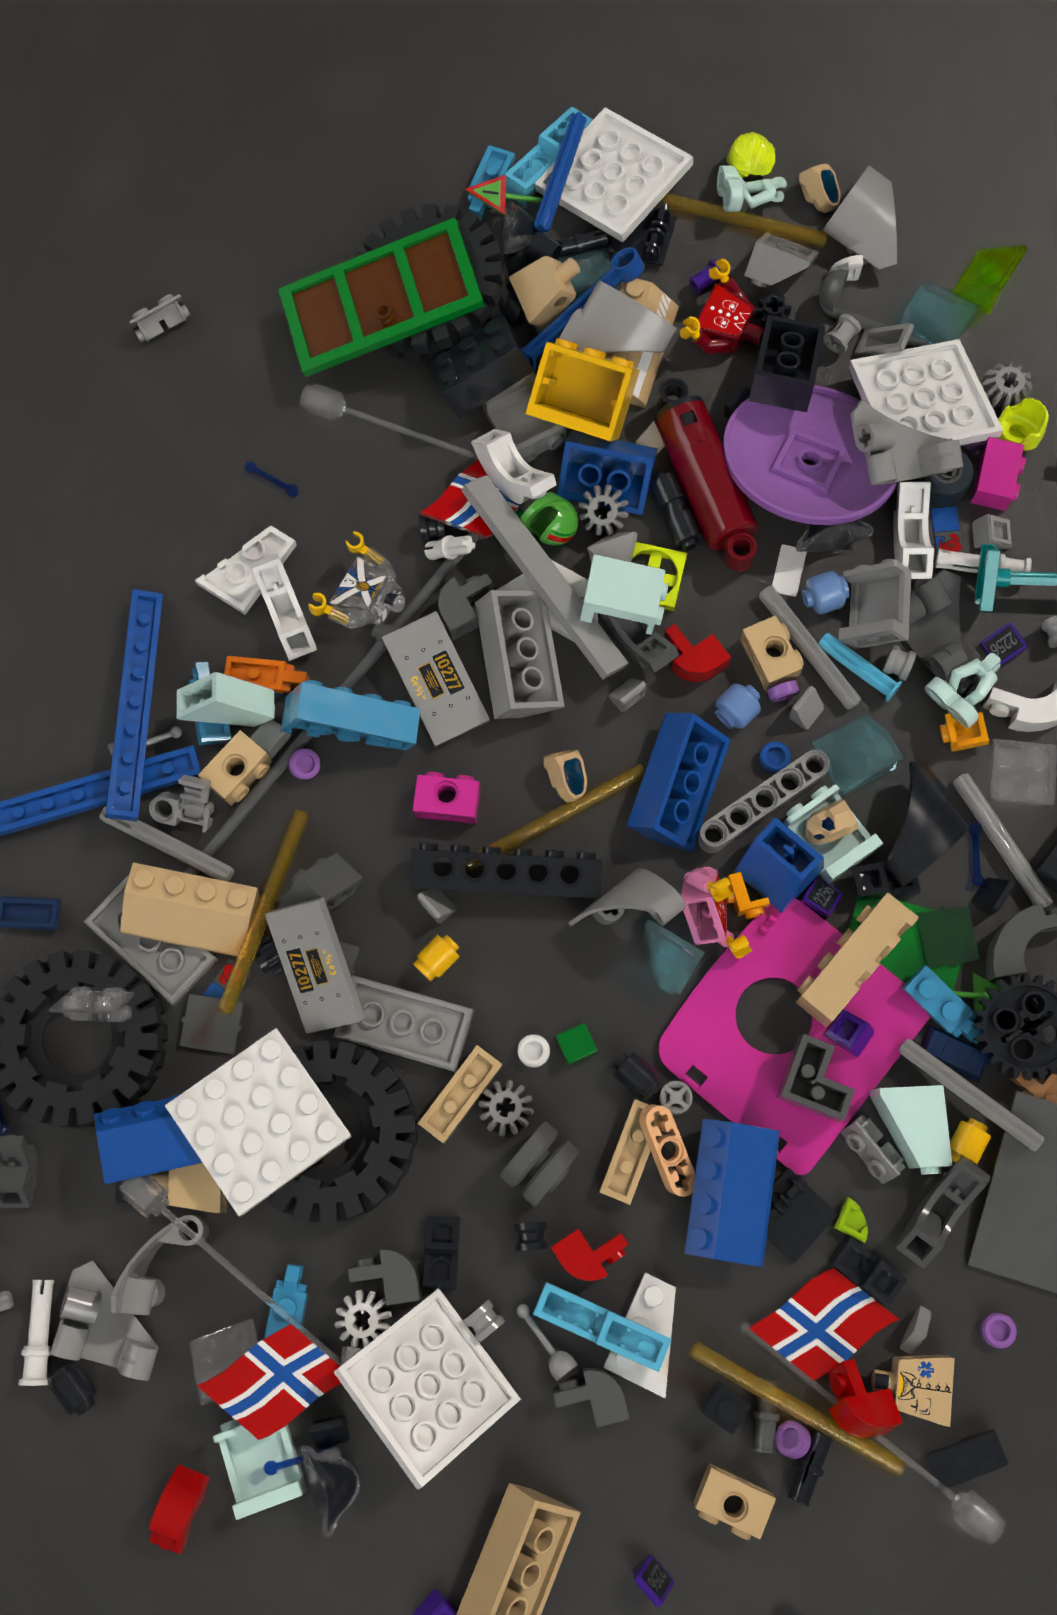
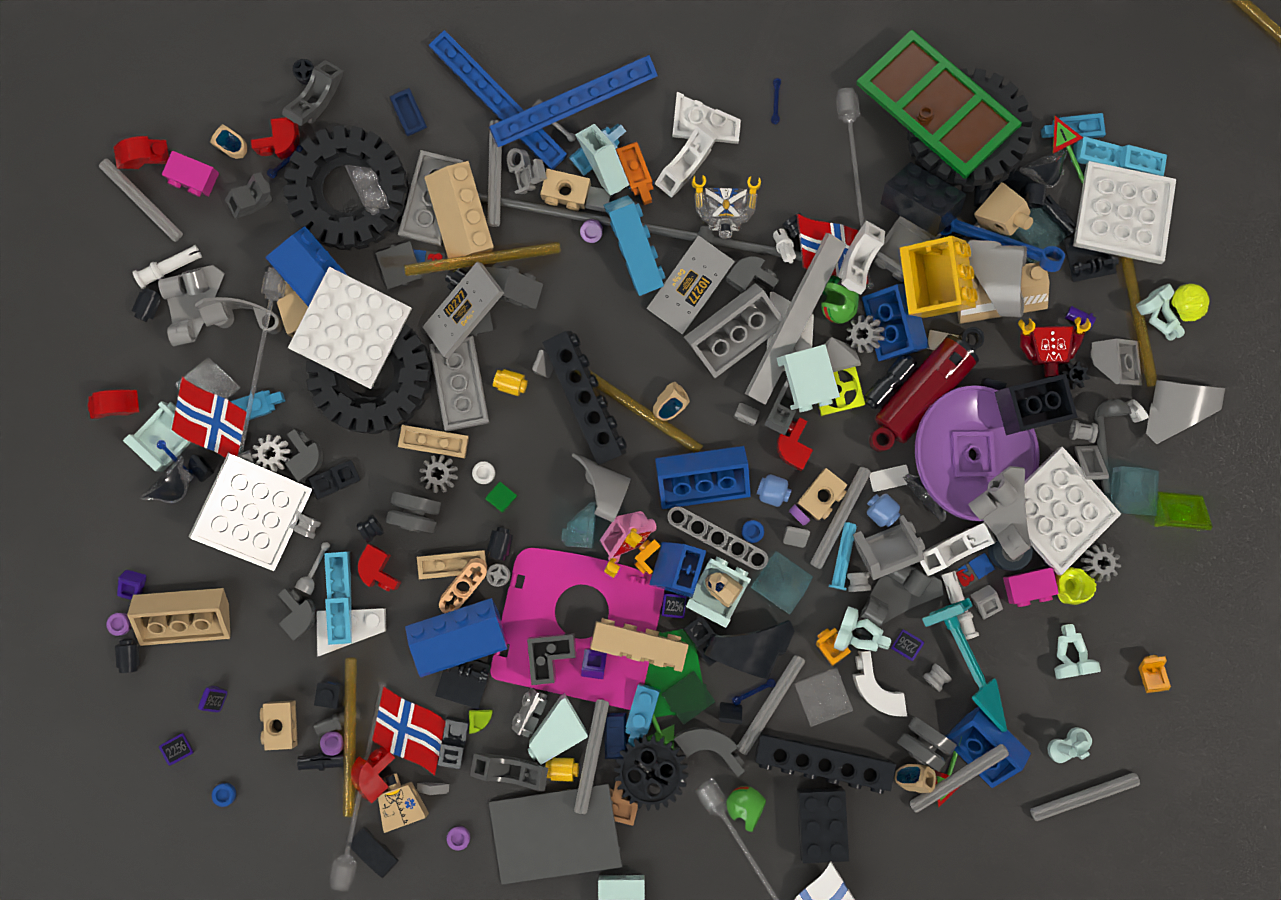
camera: 60 degrees right, 10 degrees up
(461, 809) = (606, 324): dark pink brick -> none
(560, 173) = (1104, 175): blue axle -> none
(820, 187) = (1191, 363): tan rock -> none

